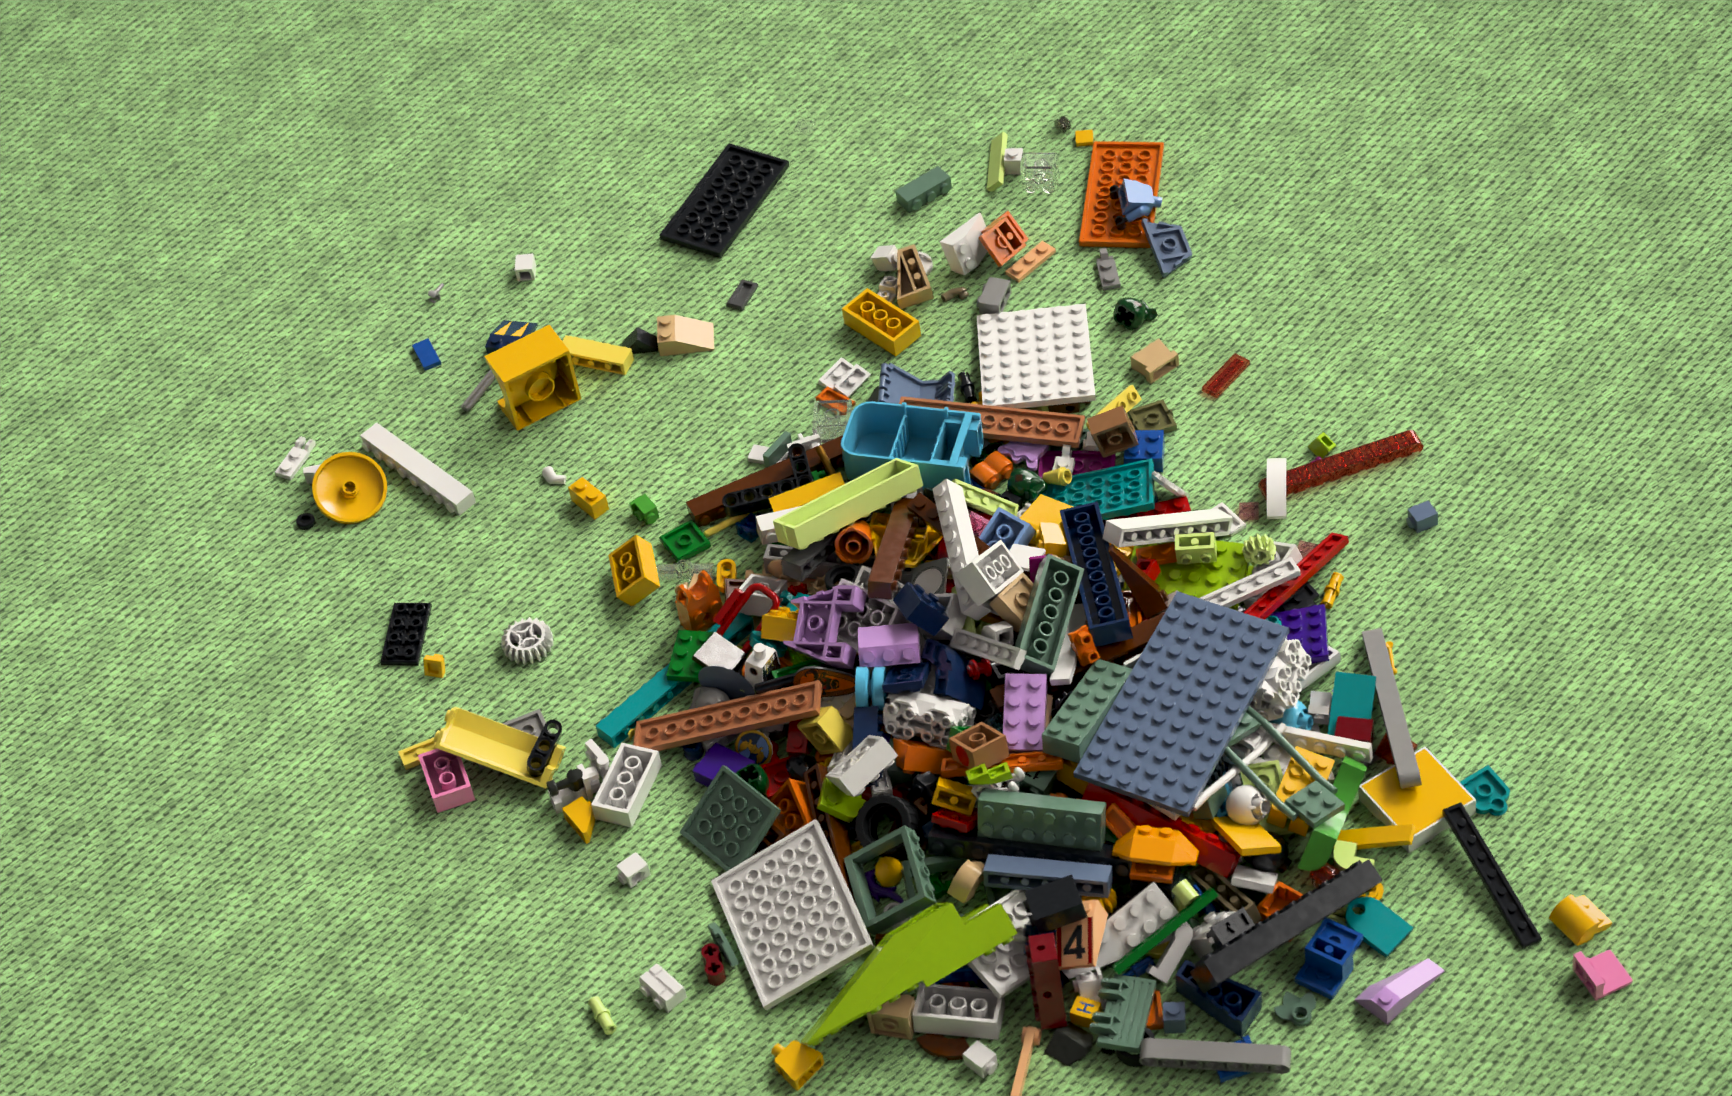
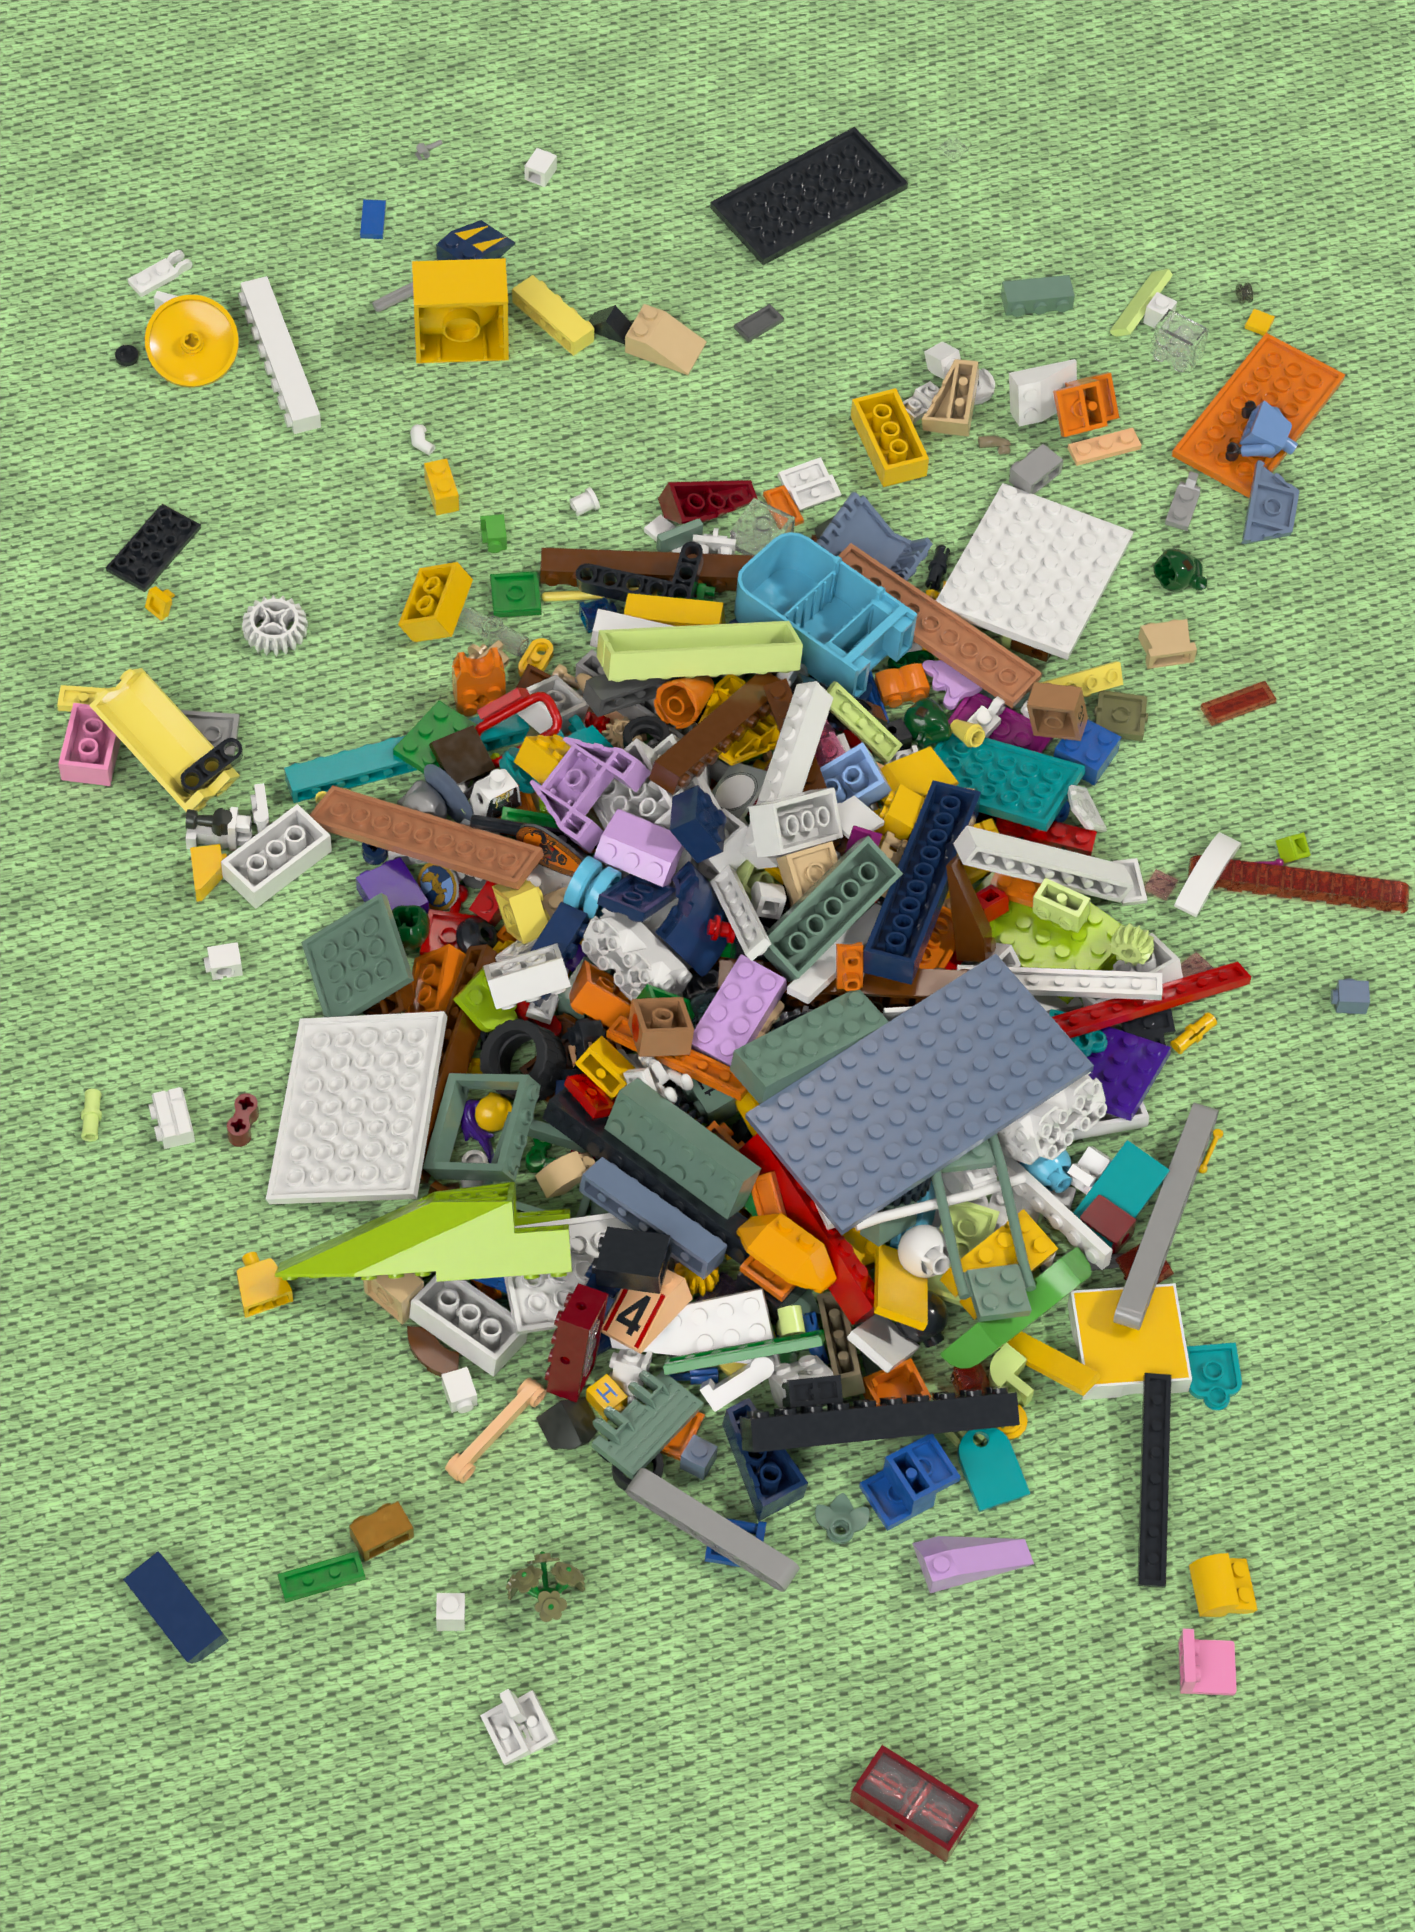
camera: 15 degrees right, 10 degrees up
(695, 461) = (584, 502): none -> white bush
(723, 944) = (266, 1097): sand green tile -> none
(773, 422) = (704, 499): none -> dark red wedge
(825, 460) = (723, 582): pearl gold bar -> none
(981, 776) = (641, 1063): lime slope -> none

